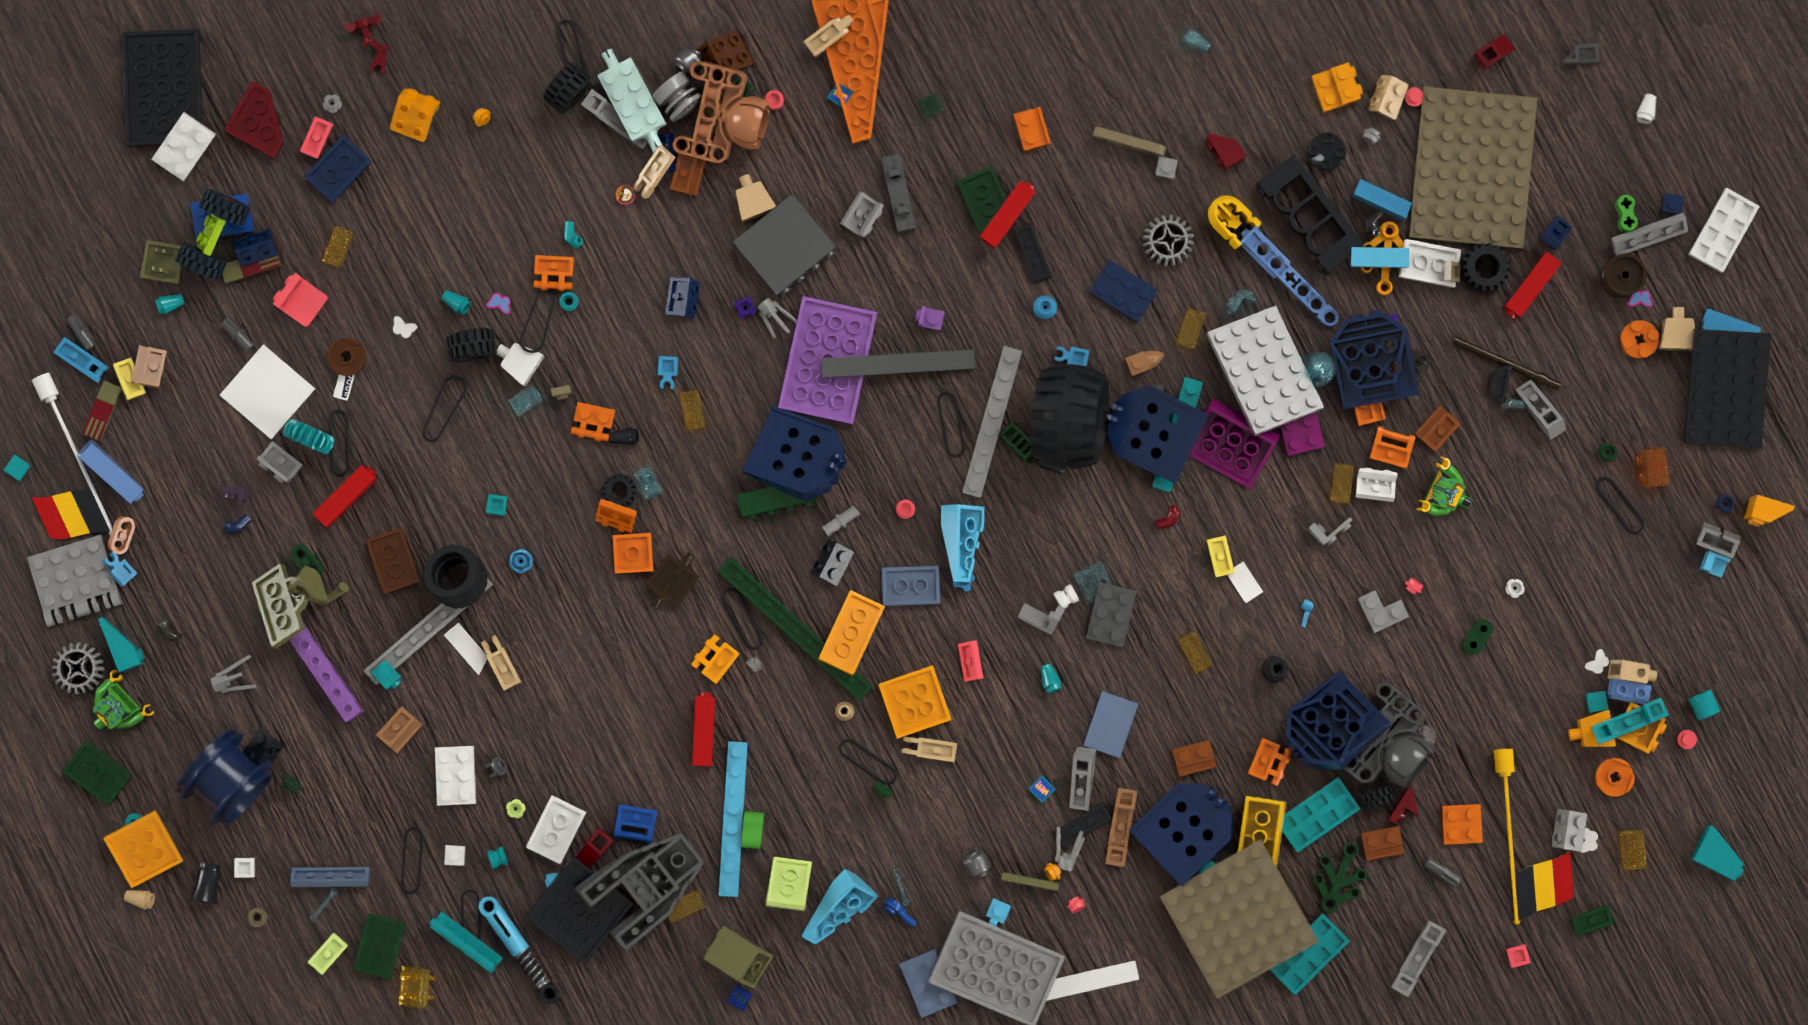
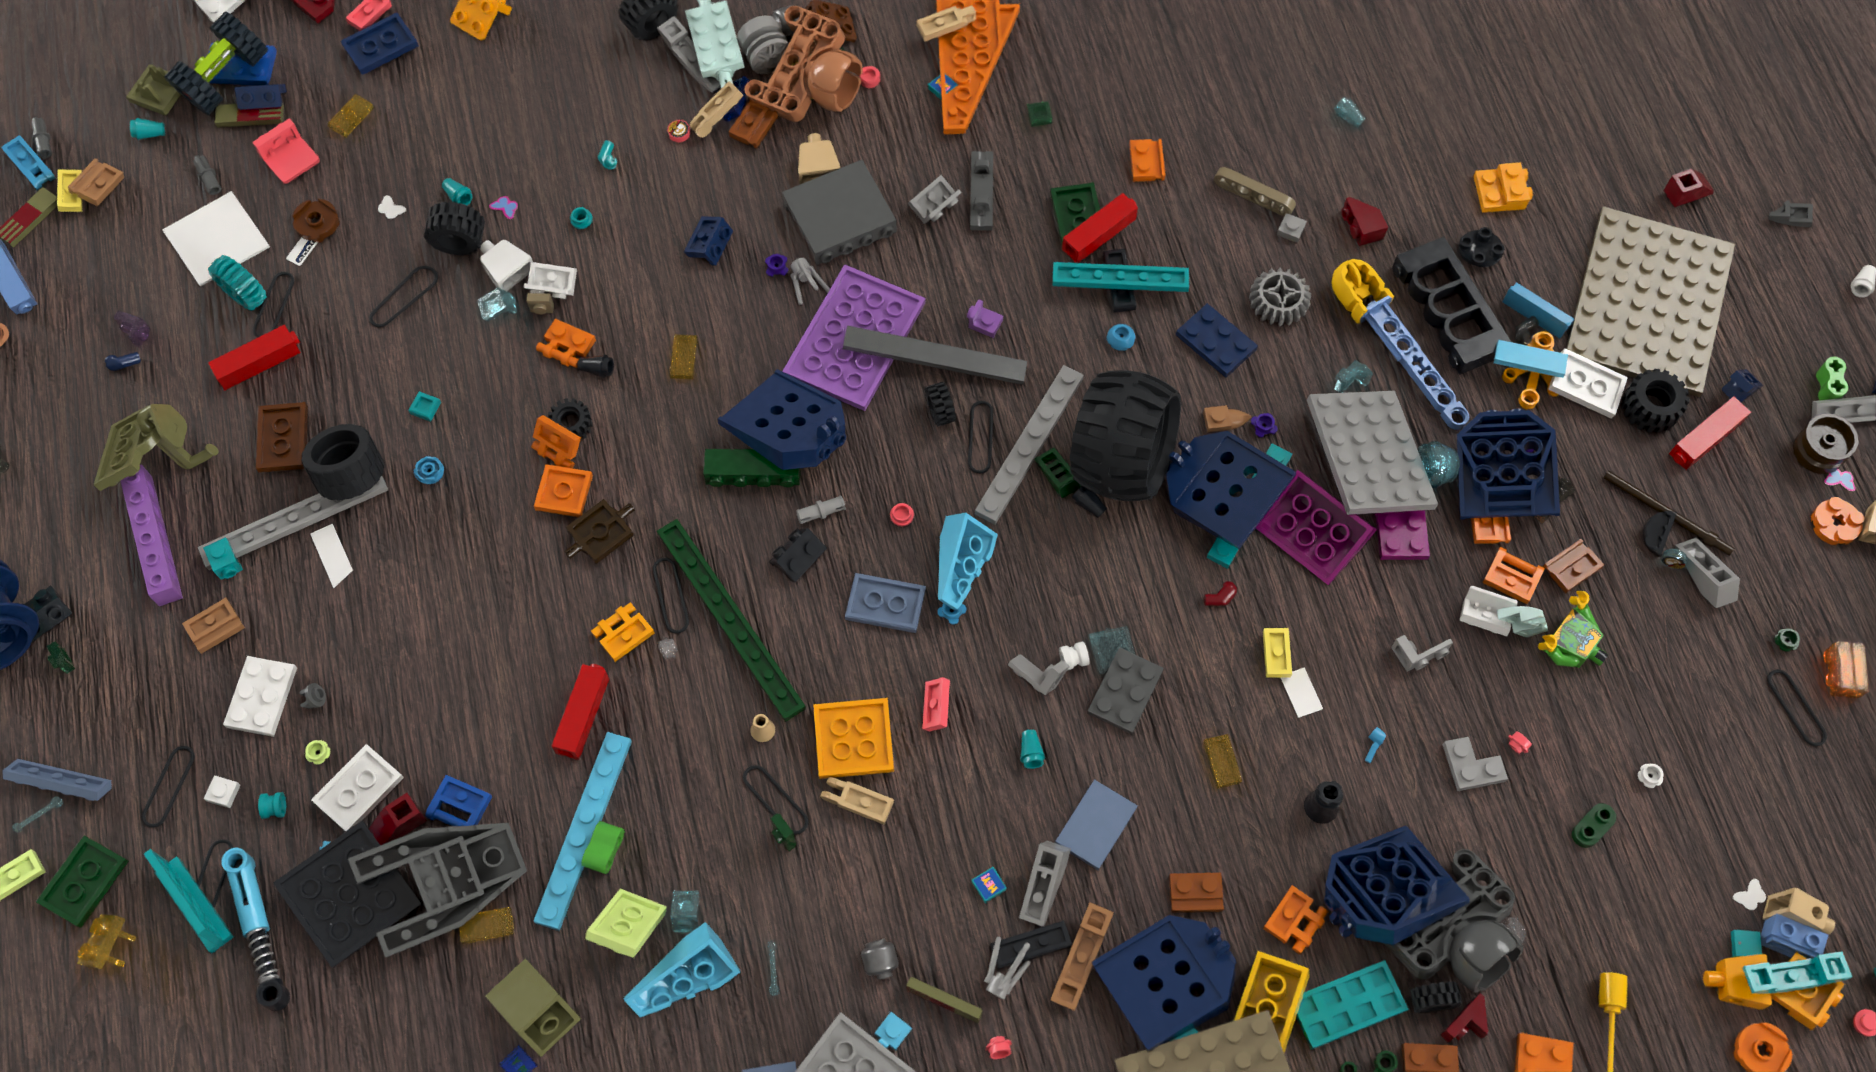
camera: 15 degrees right, 20 degrees down
(222, 681) = (30, 523): light grey plant -> none
(279, 462) = (197, 307): light grey bracket -> none
(308, 559) = (188, 413): dark green plate -> none
(481, 116) = (546, 24): light orange plate -> none
(501, 665) = (363, 580): tan hinge -> none
(547, 324) = (532, 220): black piece -> none
(553, 266) = (575, 180): orange plate -> none
(563, 368) = (552, 279): none -> white bracket
(648, 483) = (606, 417): clear light blue bracket -> none
(667, 368) = (668, 306): dark azure plate -> none
(826, 862) = (684, 911): none -> clear light blue bracket
(851, 633) = (796, 636): light orange plate -> none
(894, 907) = (756, 991): blue plate -> none
(913, 409) = (940, 404): none -> black tyre
(1033, 255) = (1120, 277): none -> teal plate
(1052, 872) = (977, 994): light orange plate -> none
(1175, 366) = (1267, 419): none -> dark purple plate
(1190, 328) = (1288, 395): clear yellow tile -> none
(1341, 483) = (1444, 603): clear yellow plate -> none
(1371, 136) = (1535, 243): light grey plate -> none
(1388, 96) = (1561, 208): tan bracket -> none
(1403, 489) = (1524, 620): none -> light aqua slope
(1414, 97) = (1590, 215): coral plate -> none
(1452, 271) = (1615, 392): dark tan plate -> none

